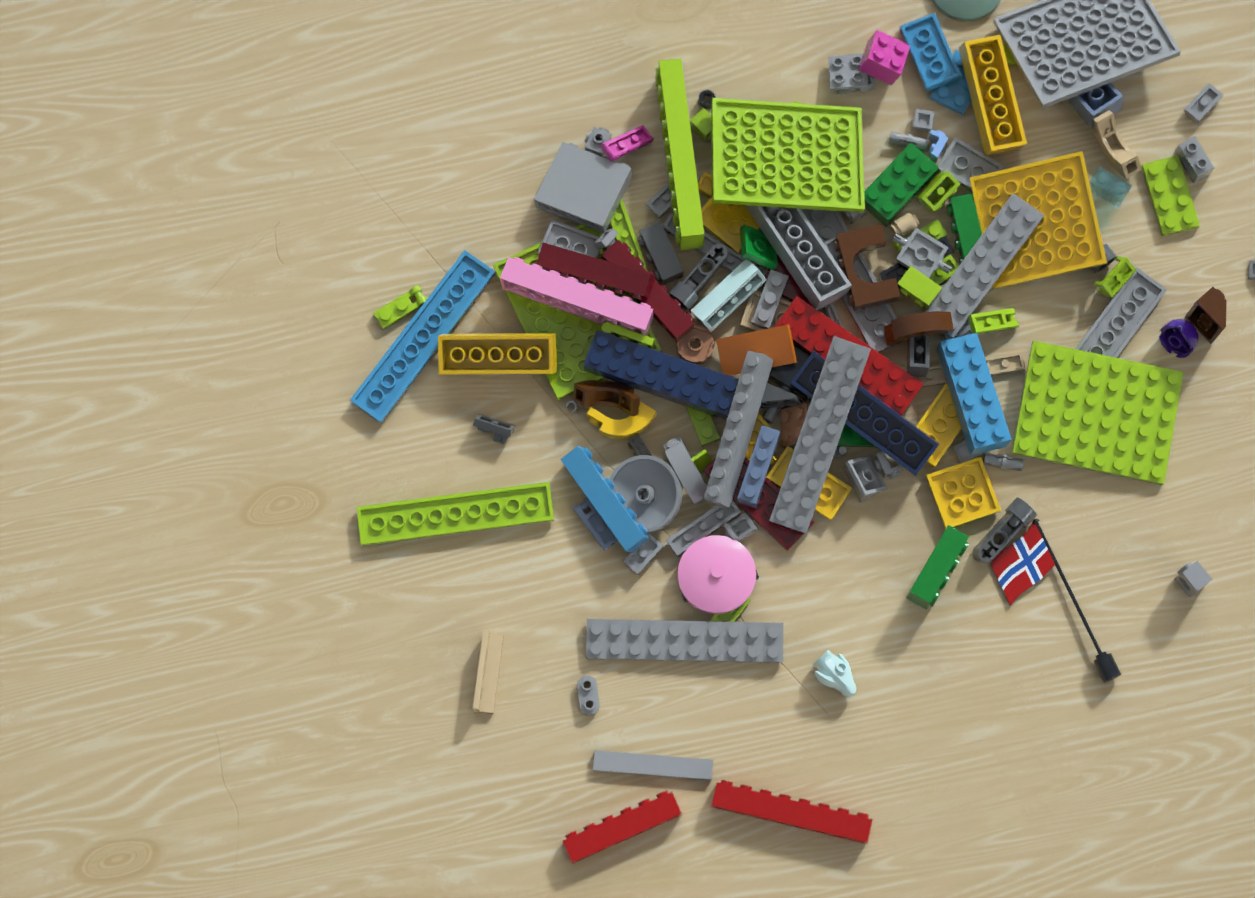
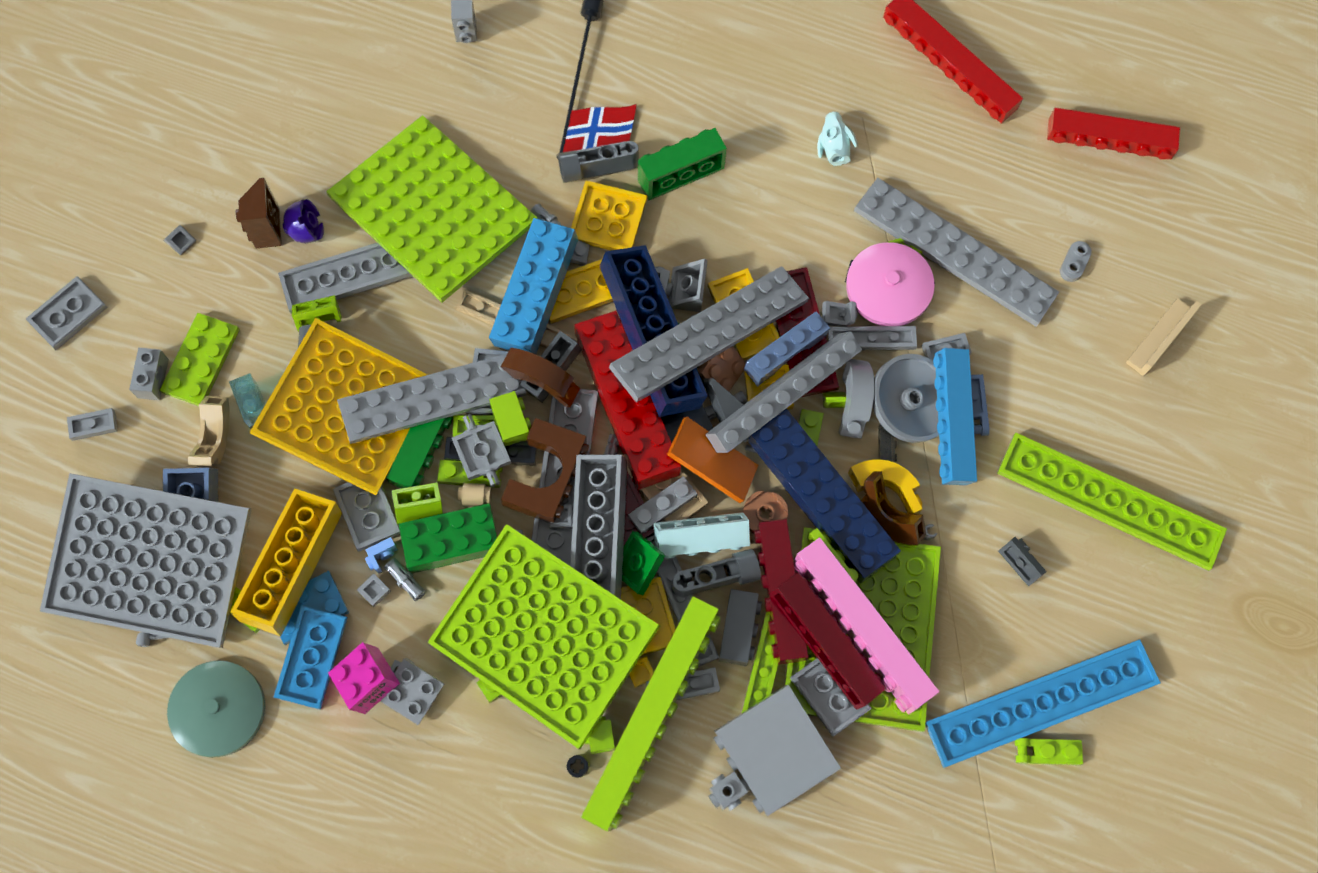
camera: 150 degrees left, 5 degrees down
(497, 353) = (981, 625): yellow brick -> none
(606, 239) = (792, 671): light grey plate -> none
(627, 143) = (698, 768): dark pink tile -> none
(653, 765) = (1051, 169): light grey tile -> none
(993, 321) = (462, 345): lime plate -> none

